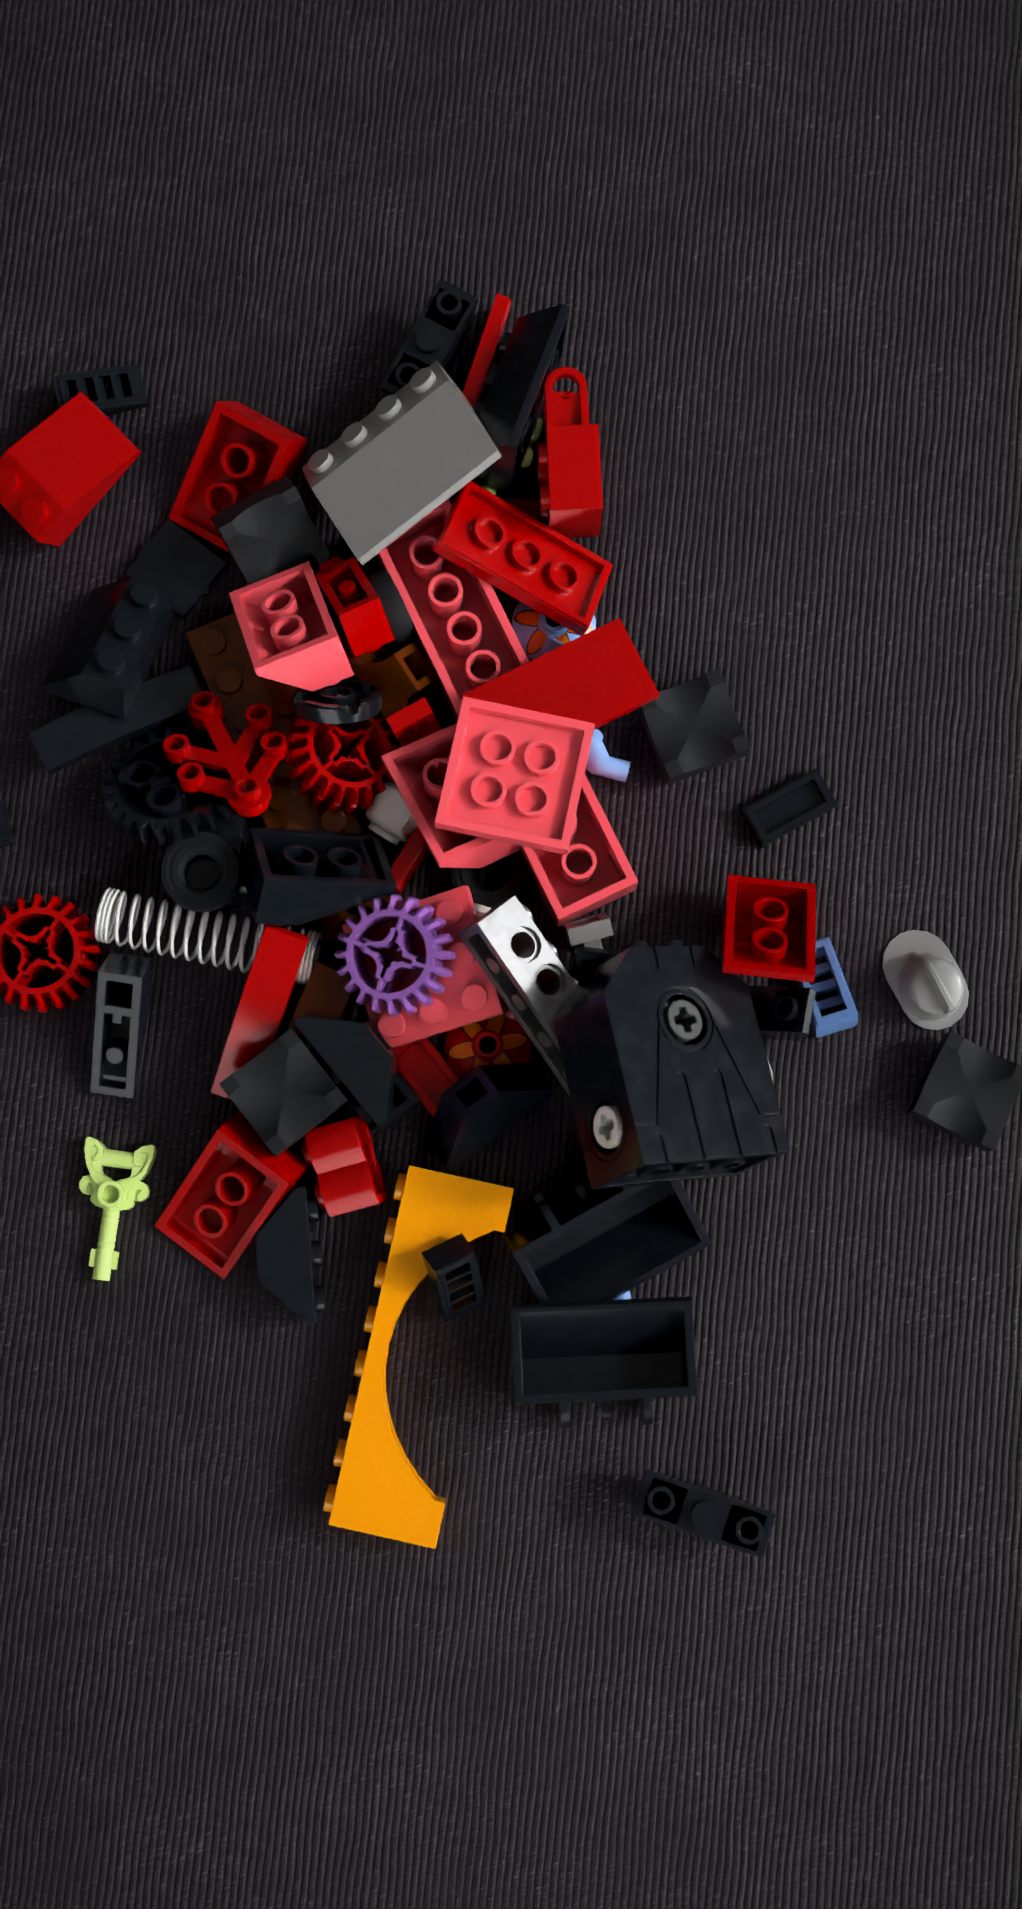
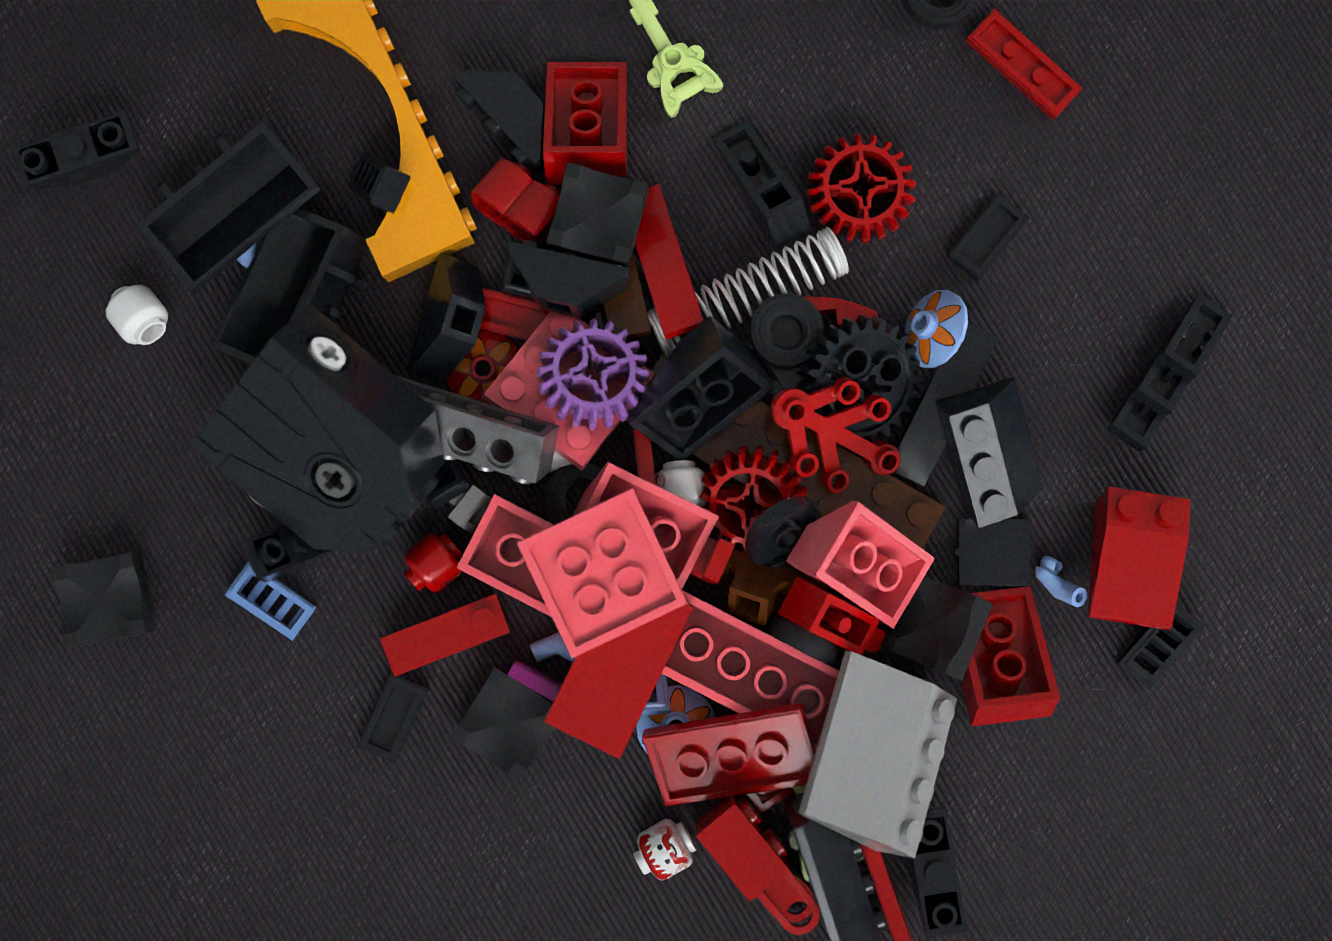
camera: 145 degrees right, 5 degrees up
(64, 774) = (937, 327): none -> light blue dish
(143, 858) = (840, 309): none -> red slope
(145, 496) = (1061, 589): none -> light blue arm
(640, 529) = (664, 849): none -> white head
(641, 743) = (535, 679): none -> magenta tile
(656, 910) = (433, 562): none -> red head
(689, 838) = (445, 635): none -> red slope
(758, 1324) = (137, 314): none -> white head
(769, 928) = (330, 602): red slope -> none
(925, 979) = (199, 663): light grey piece -> none

